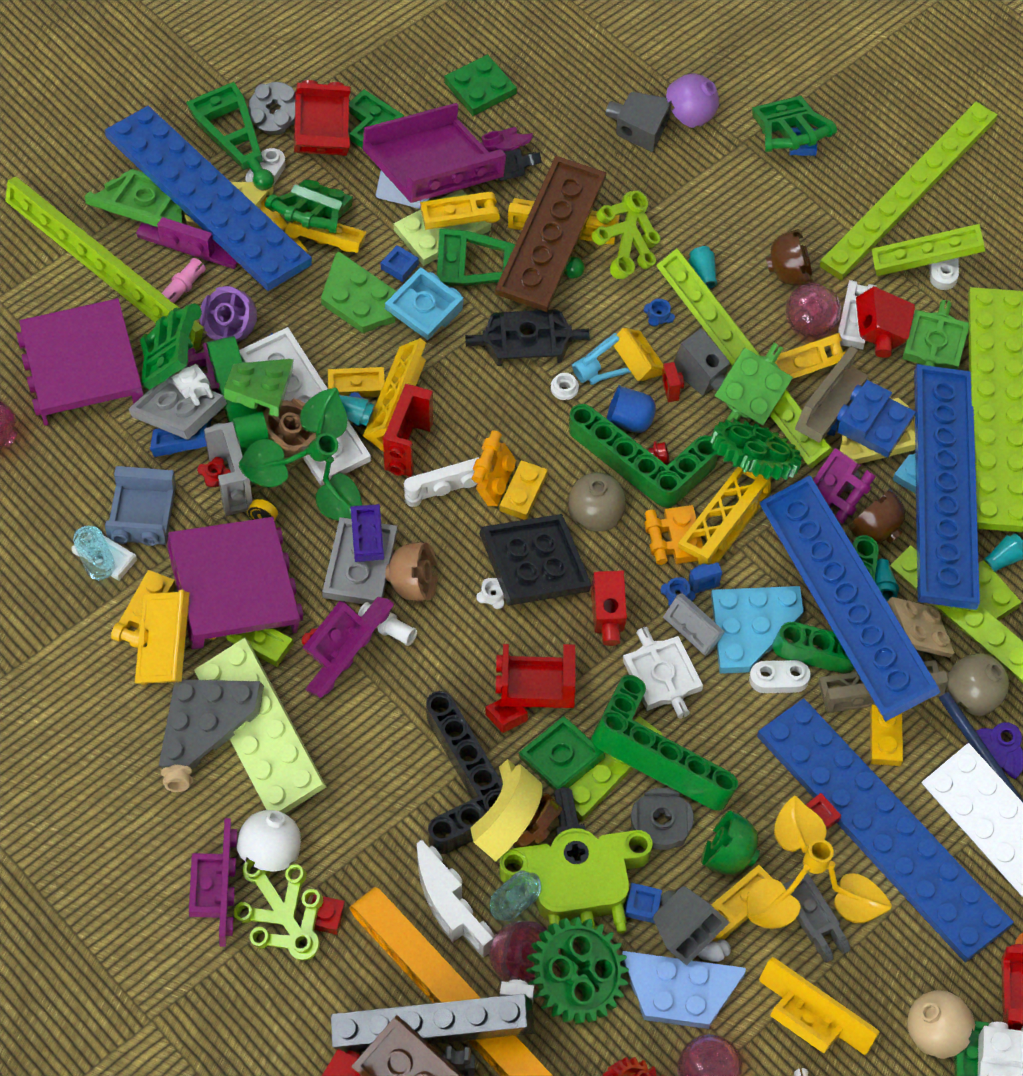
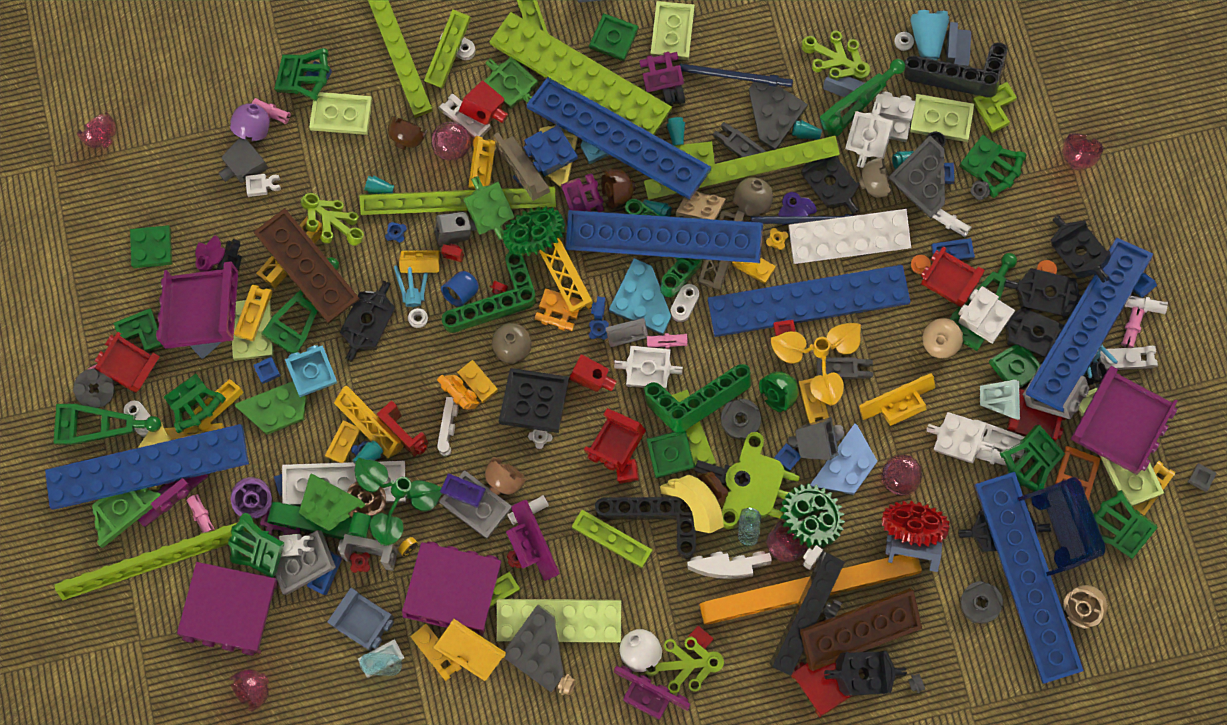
camera: 55 degrees left, 15 degrees up
(404, 740) = (612, 539): none -> lime plate
(626, 148) = (258, 184): none -> white plate
(723, 119) = (273, 111): none -> bright pink pin
(724, 692) = (668, 341): none -> bright pink pin
(770, 187) = (341, 113): none -> yellowish green plate
(938, 752) = (771, 241): none -> yellow plate

